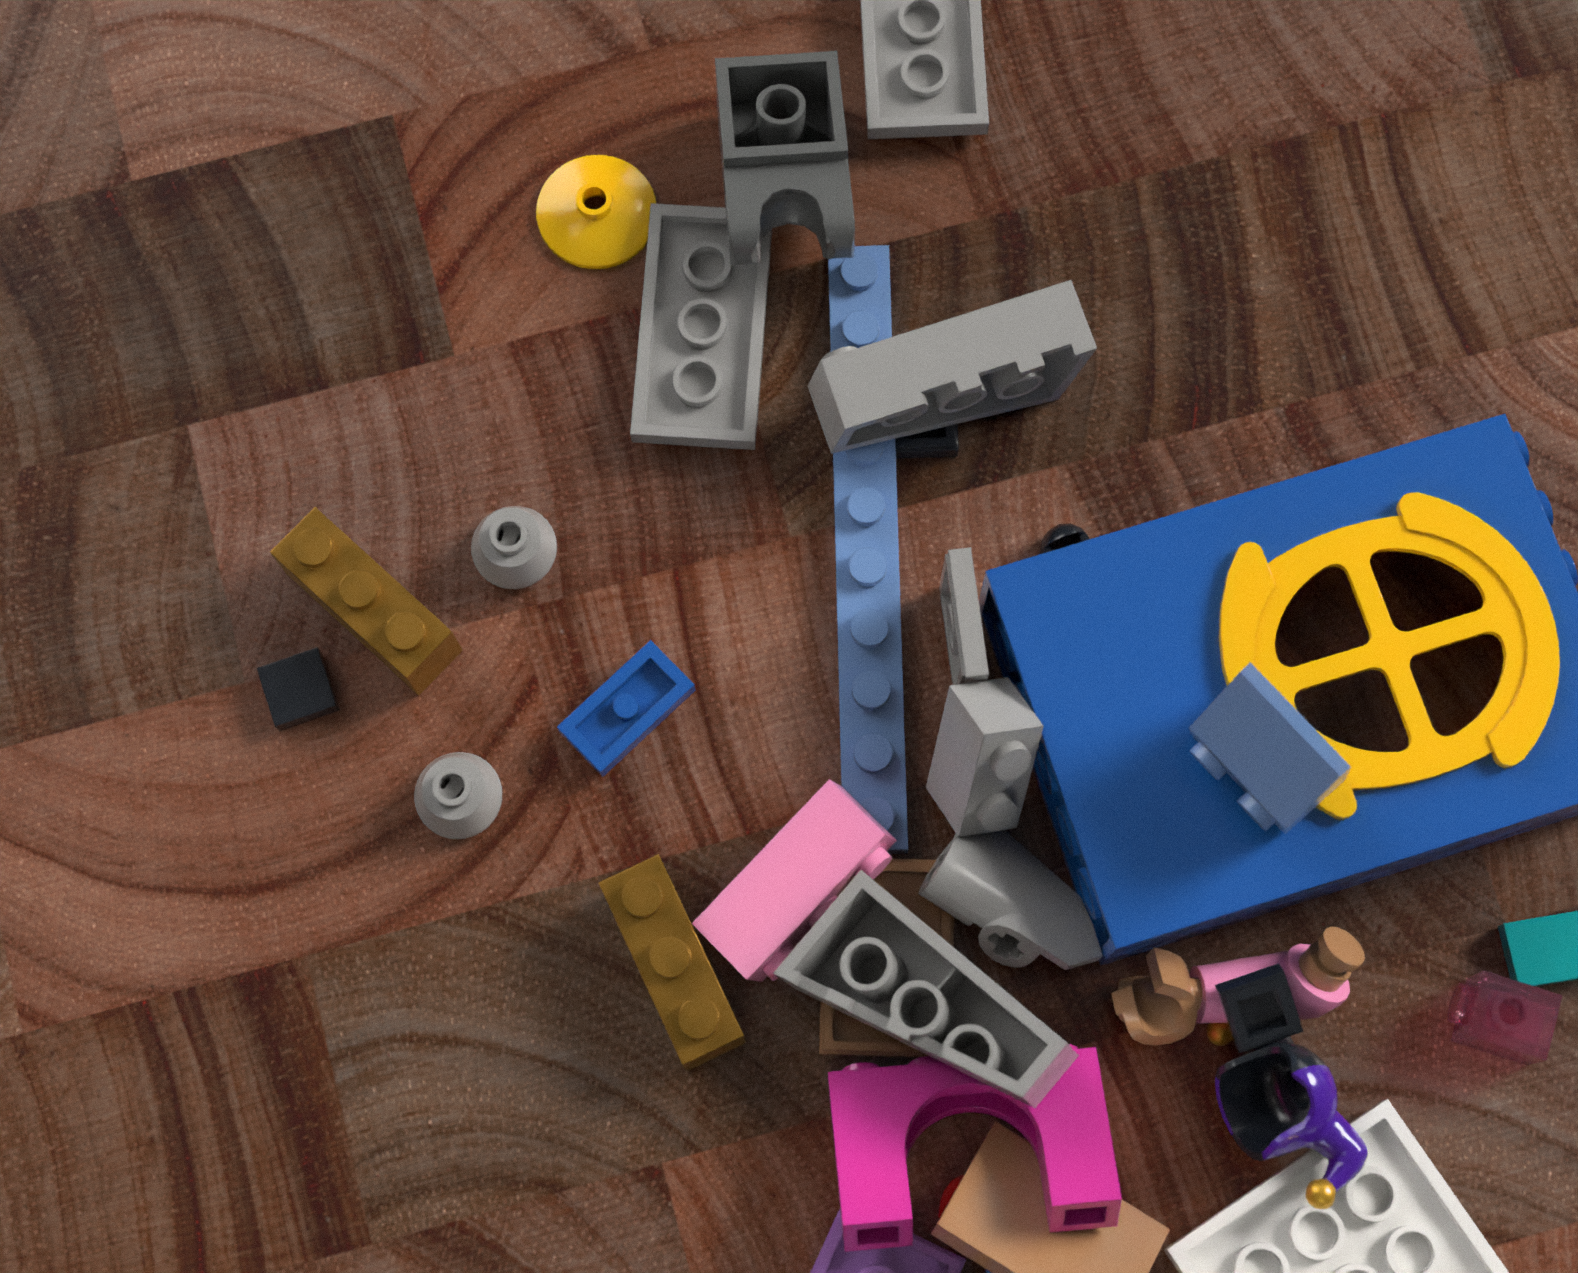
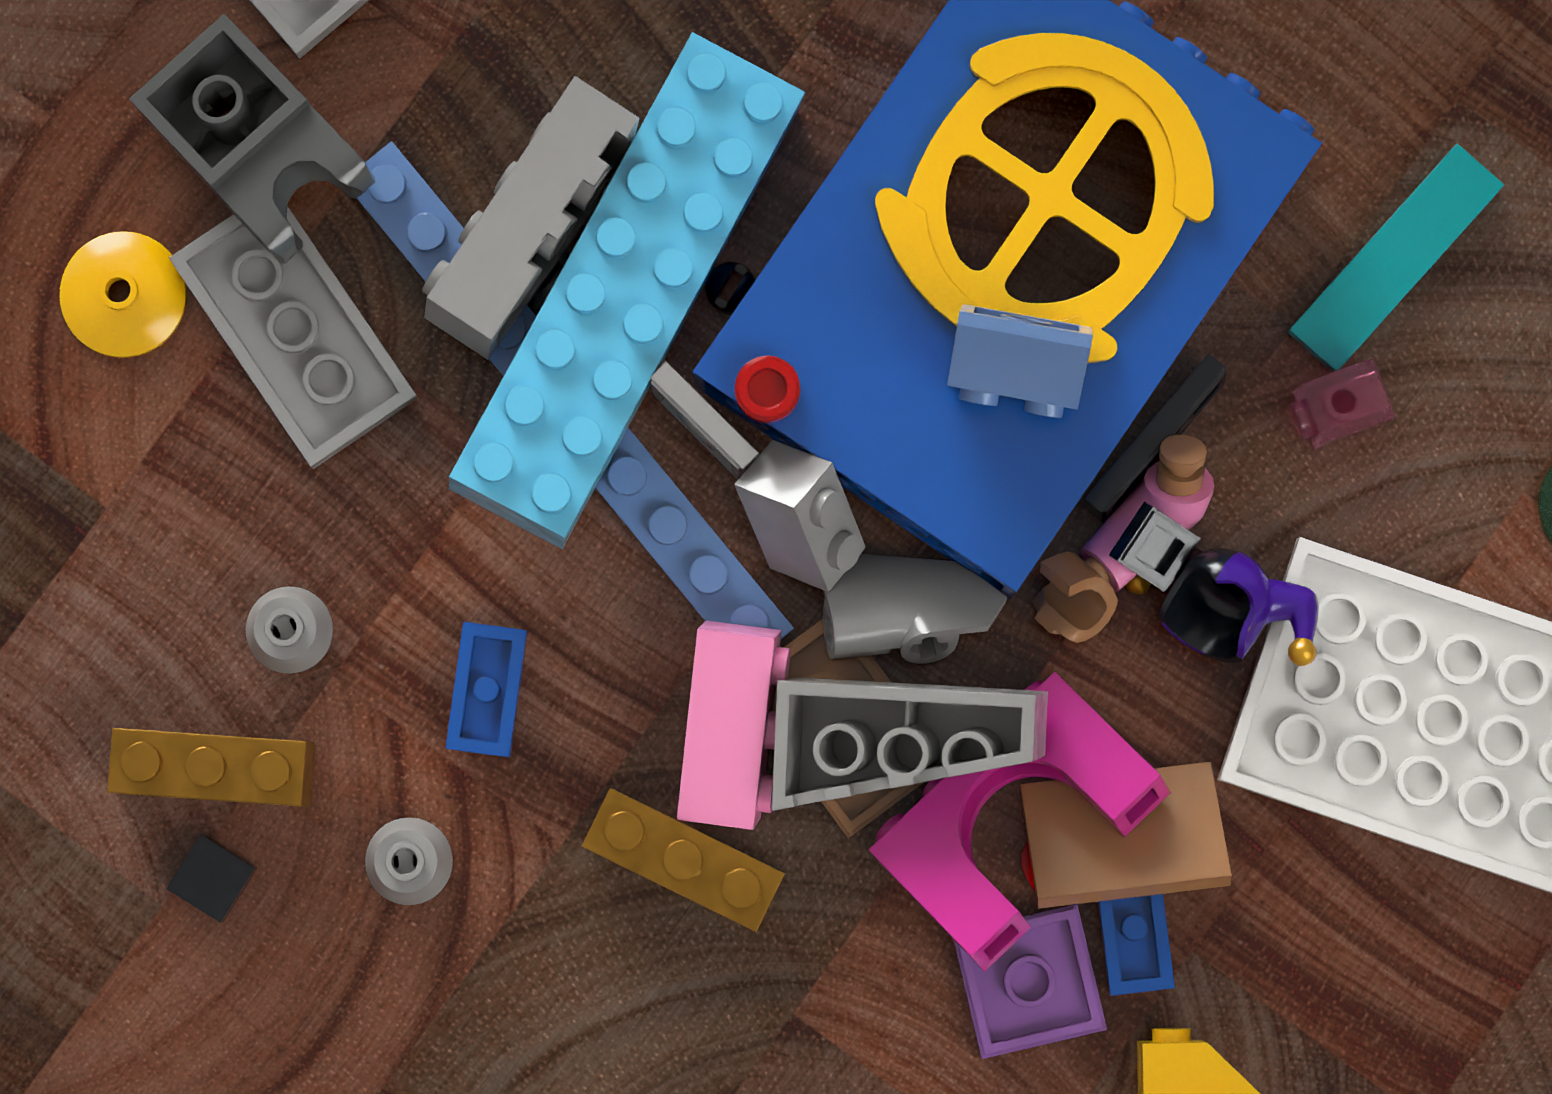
camera: 40 degrees left, 10 degrees up
(979, 481) = (626, 291): none -> medium azure brick
(1036, 627) = (767, 389): none -> red tile
(1358, 917) = (1144, 450): none -> black tile

